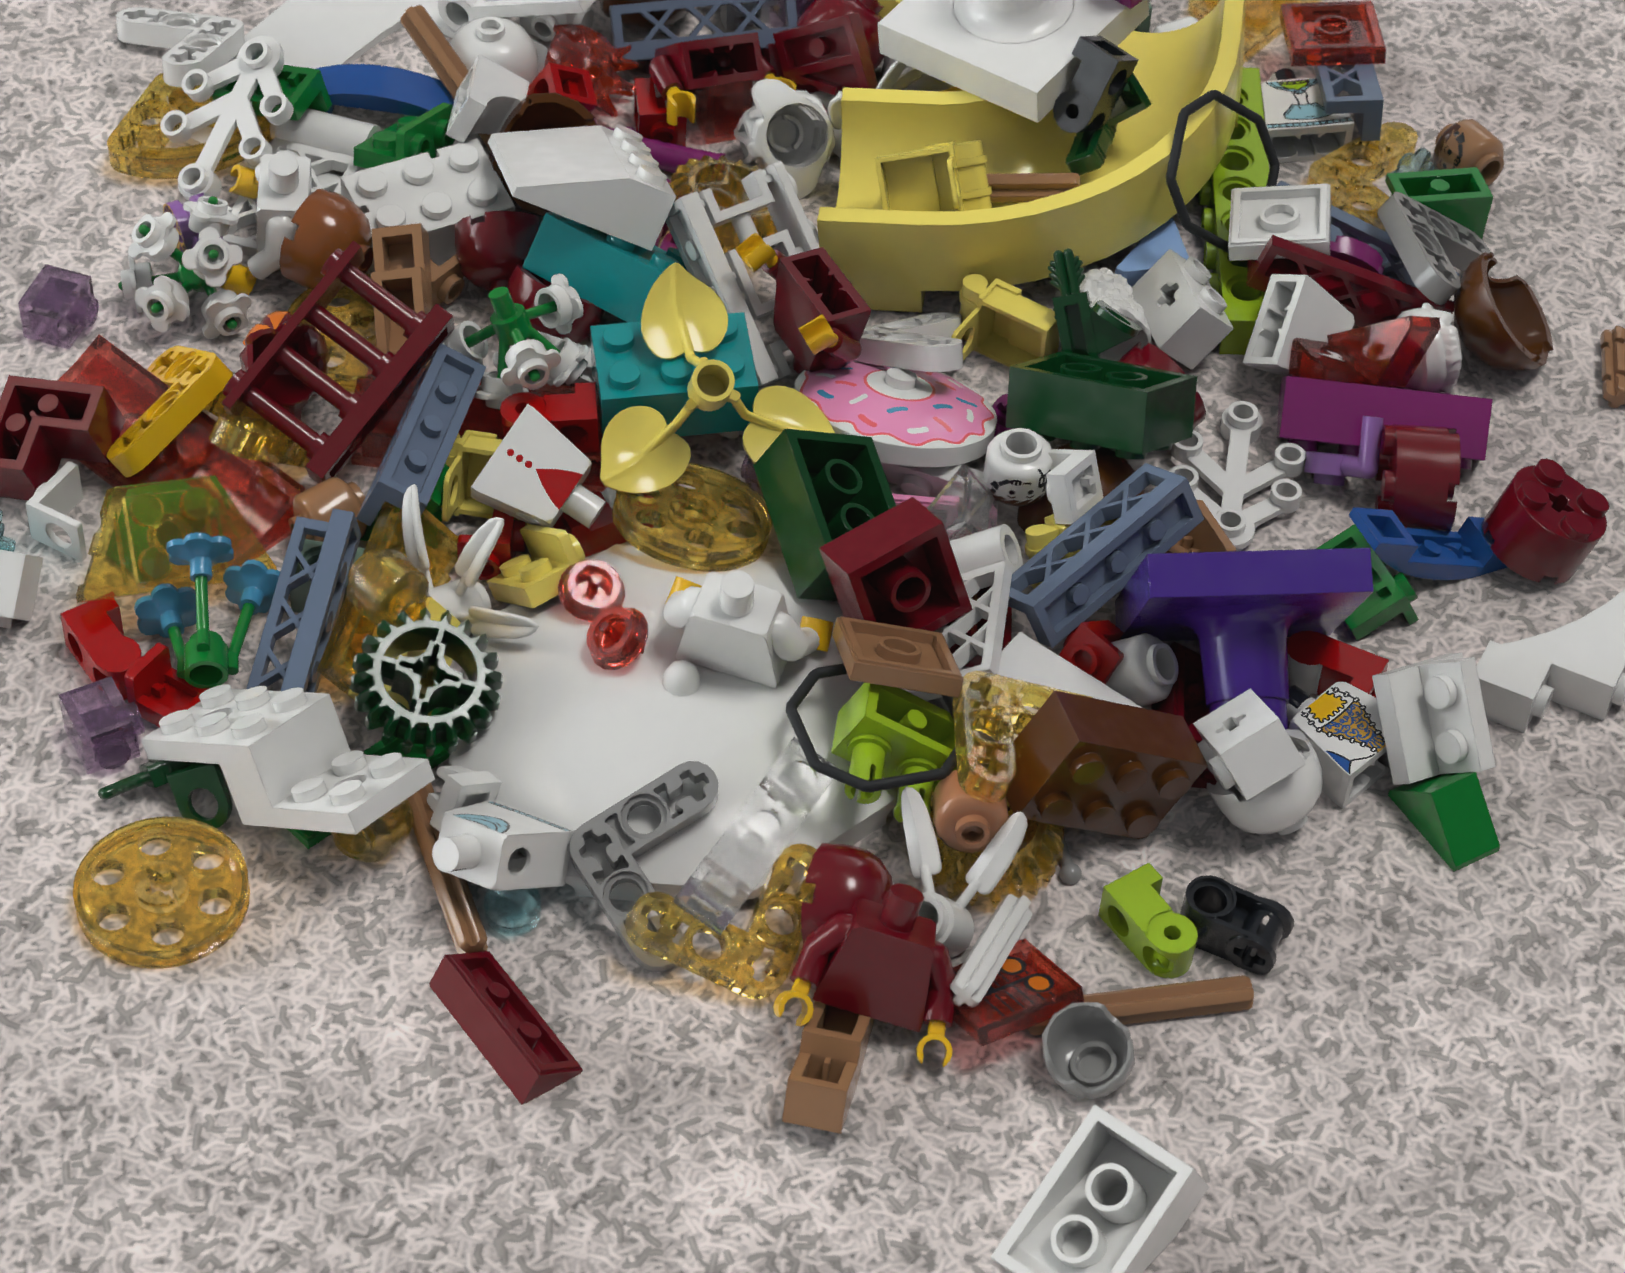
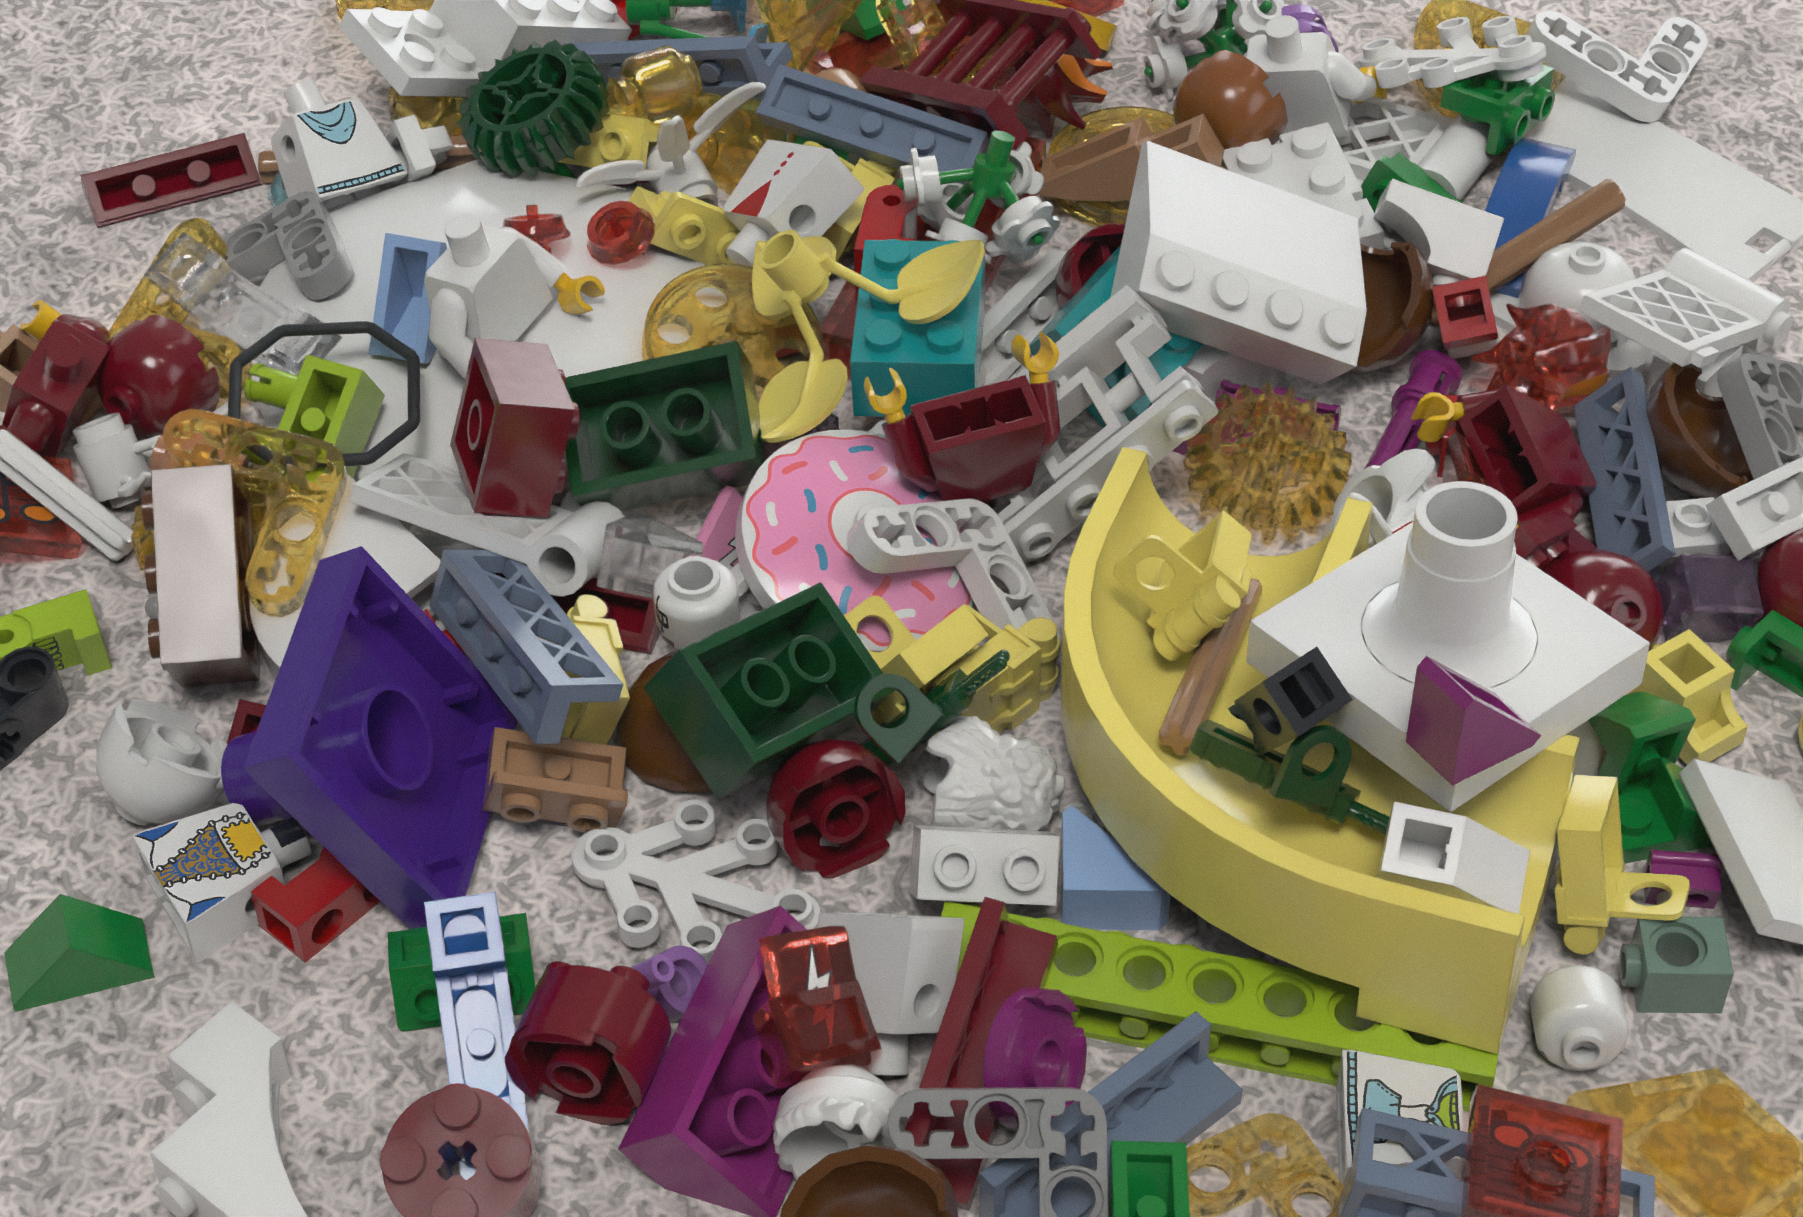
camera: 105 degrees right, 0 degrees up
(743, 693) = (402, 296): none -> light blue slope
(897, 656) = (391, 404): medium nougat tile -> none
(1013, 335) = (919, 659): none -> light yellow piece
(1073, 484) = (627, 627): white bracket -> none
(1163, 51) = (1453, 857): none -> white slope
(1176, 151) = (1238, 874): black piece -> none
(1247, 745) = (169, 702): white brick -> none
(1288, 212) = (1069, 956): white tile -> none
(1433, 718) = (167, 930): white bracket -> none

